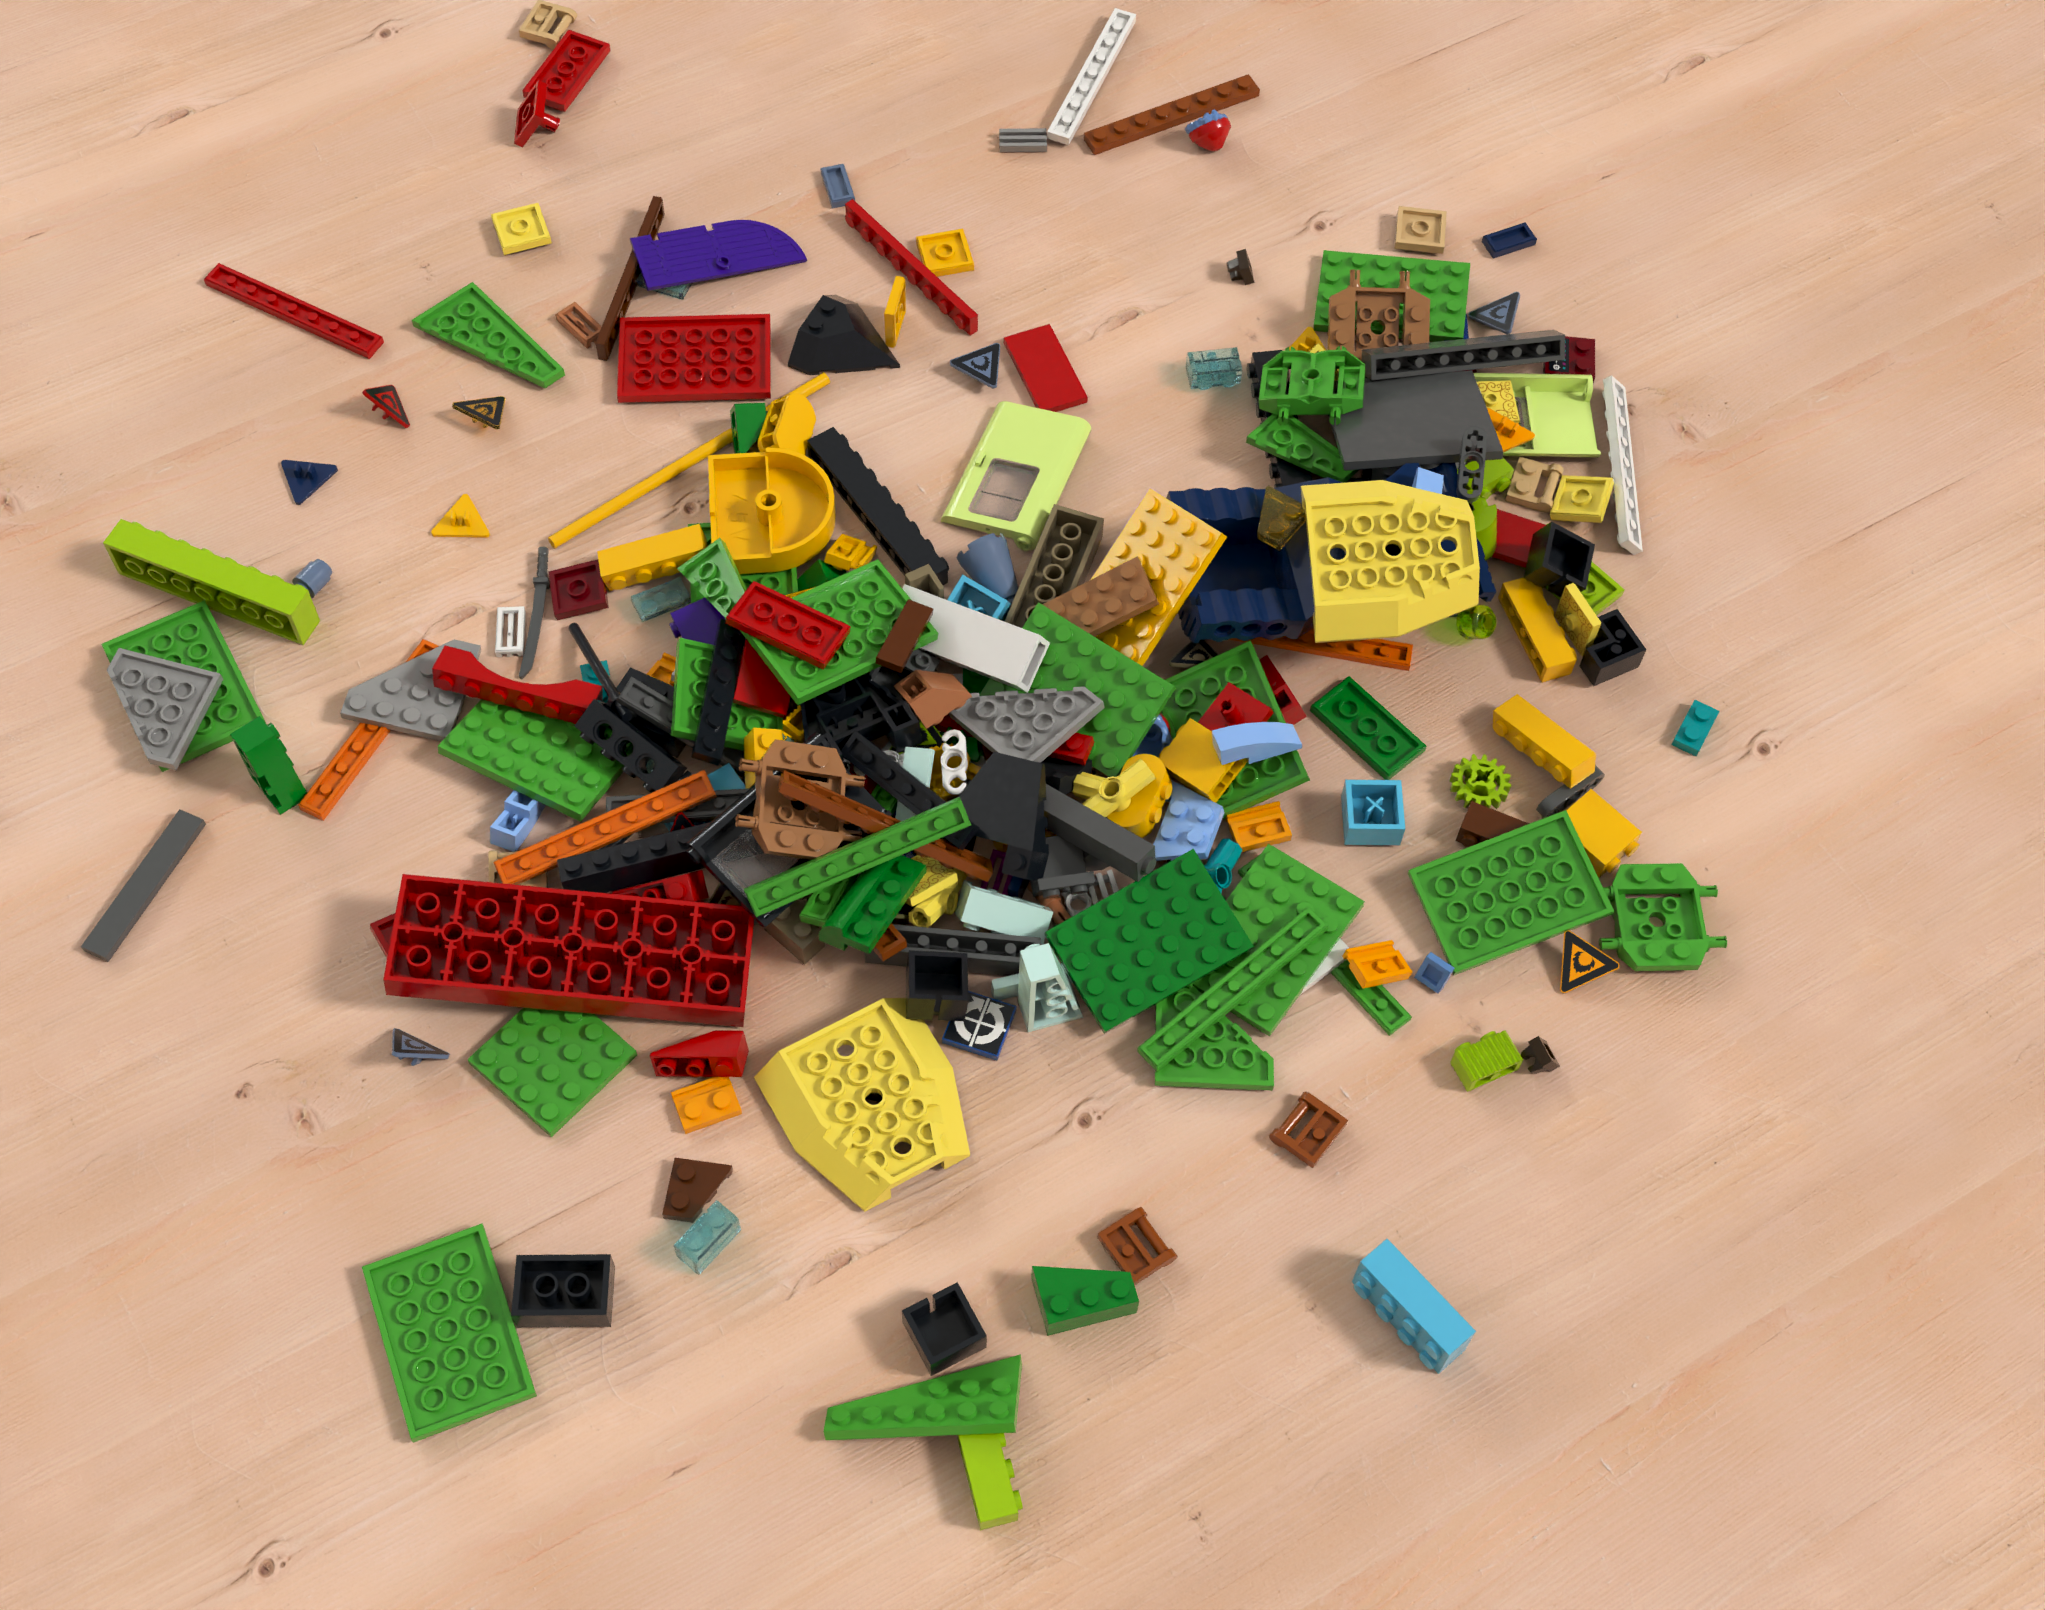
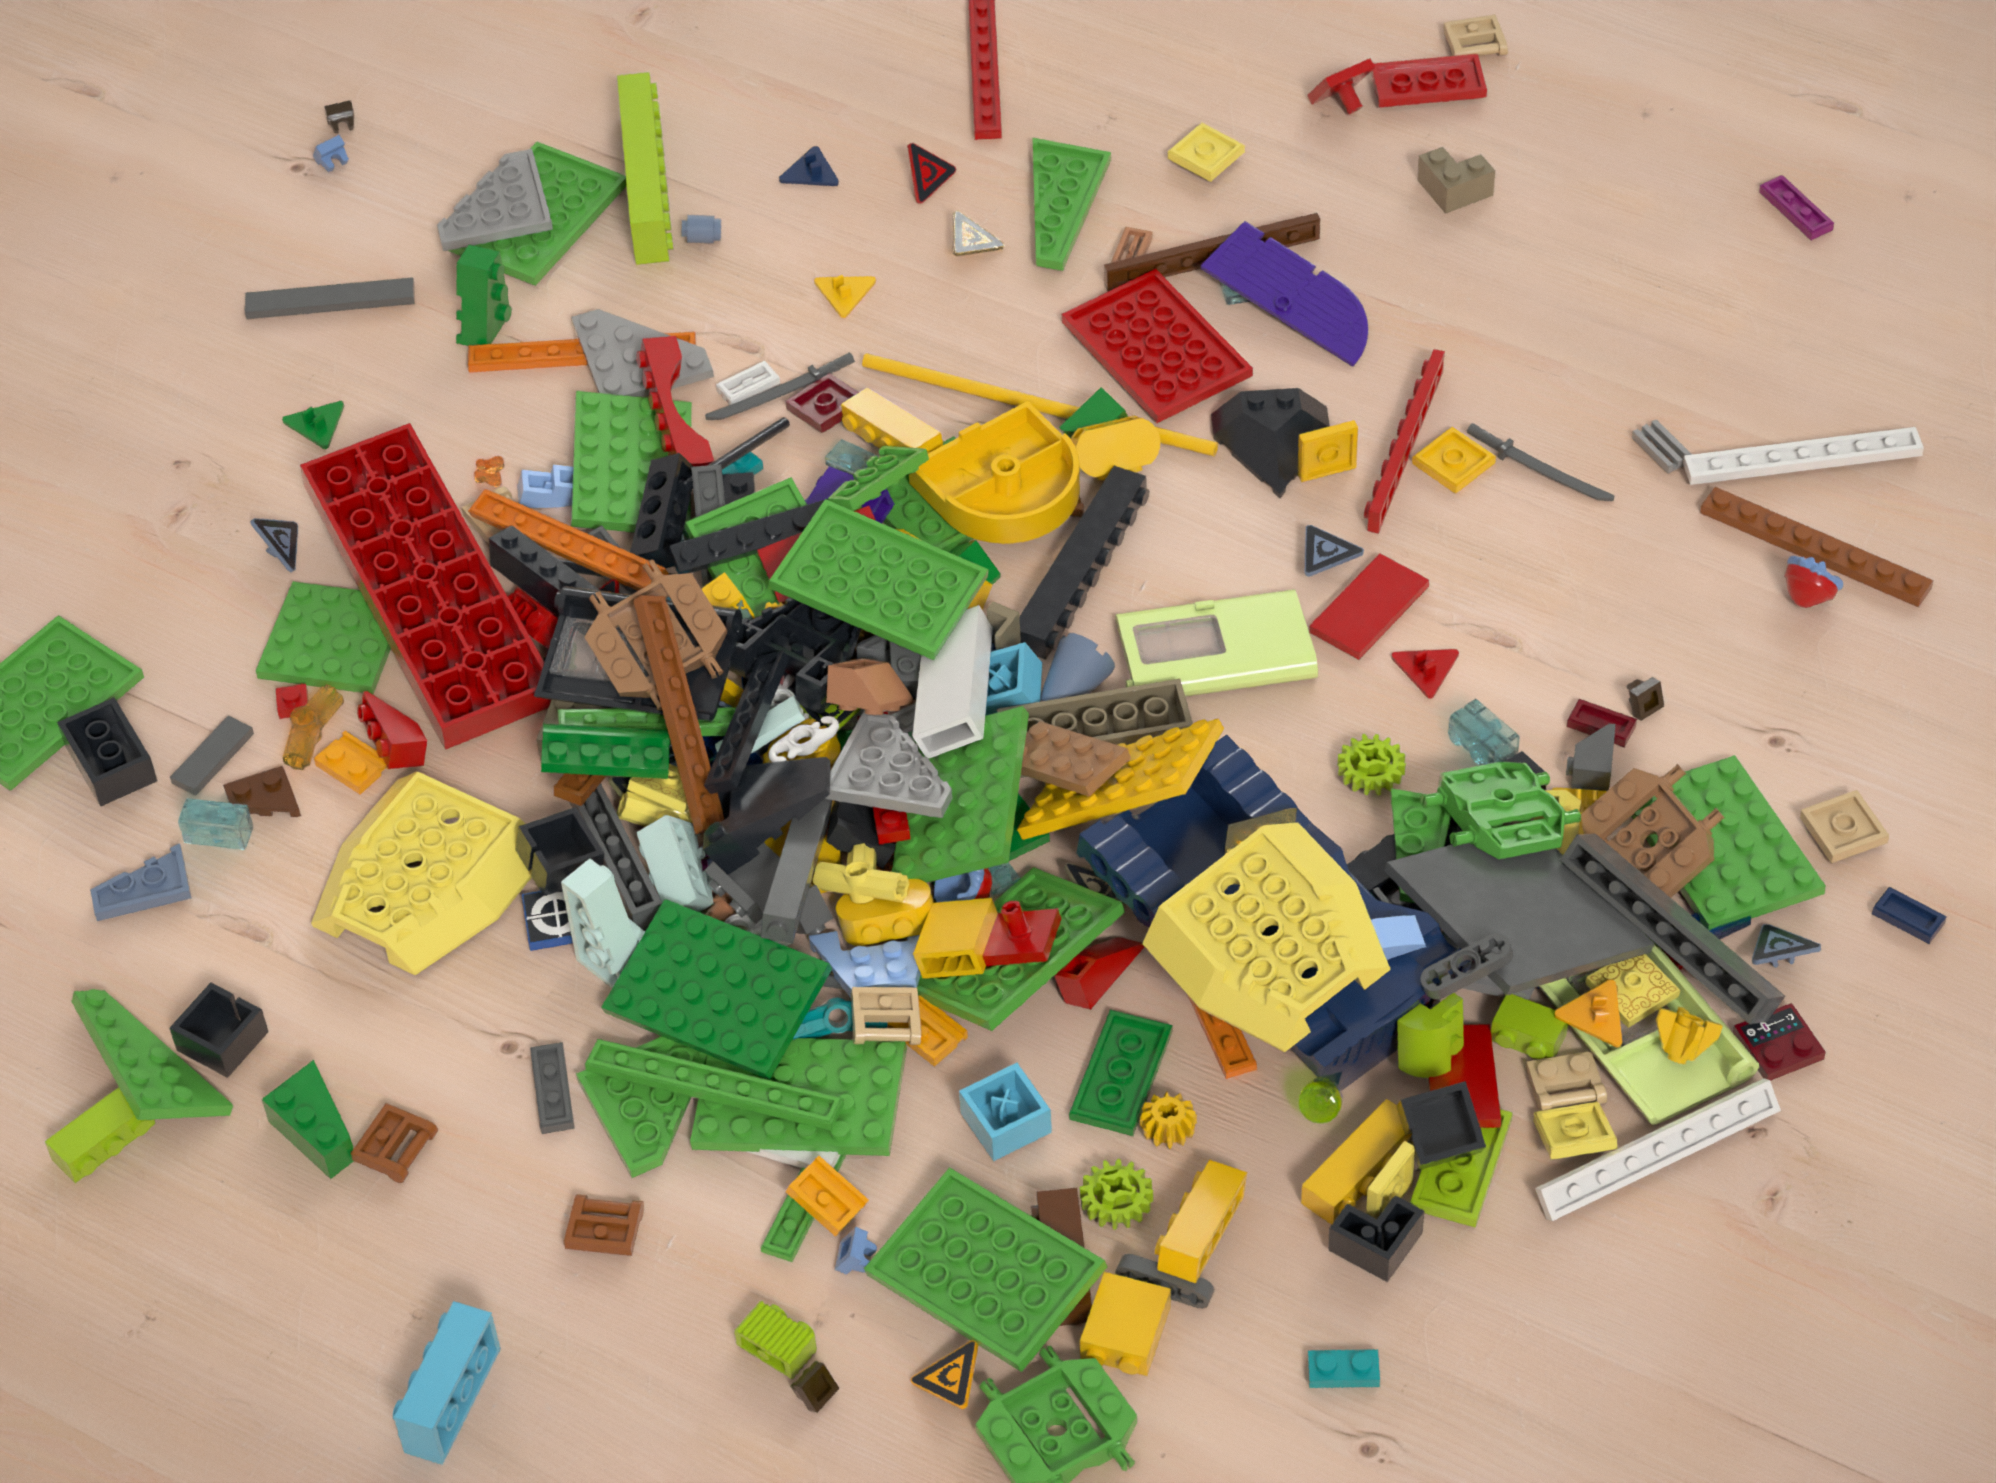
camera: 65 degrees right, 10 degrees down
(286, 961) = (316, 423): none -> green piece
(455, 857) = (488, 471): none -> clear orange piece
(602, 1119) = (290, 698): none -> red plate
(618, 1210) = (211, 755): none -> dark grey tile
(659, 1128) = (307, 726): none -> clear yellow piece
(683, 111) = (1453, 183): none -> dark tan brick
(734, 1324) = (151, 886): none -> sand blue wing
(788, 625) = (846, 534): red tile -> none
(837, 185) = (1468, 339): sand blue tile -> none
(849, 553) = (1009, 564): yellow plate -> none
(857, 857) = (633, 710): bright green tile -> none
(904, 636) = (905, 625): reddish brown tile -> none
(961, 219) = (1507, 449): none -> dark grey sword
(1123, 369) = (1426, 667): none -> red piece
(1149, 1106) = (552, 1088): none -> dark grey tile
(1195, 442) = (1371, 764): none -> lime gear
(1236, 838) = (885, 1005): none -> tan plate
(1242, 303) = (1591, 717): none -> dark red tile
(1254, 741) = (989, 953): light blue slope -> none
(1279, 322) = (1593, 761): none -> dark grey slope
(1434, 719) = (1168, 1120): none -> yellow gear
(1551, 396) = (1684, 1034): none -> yellow brick

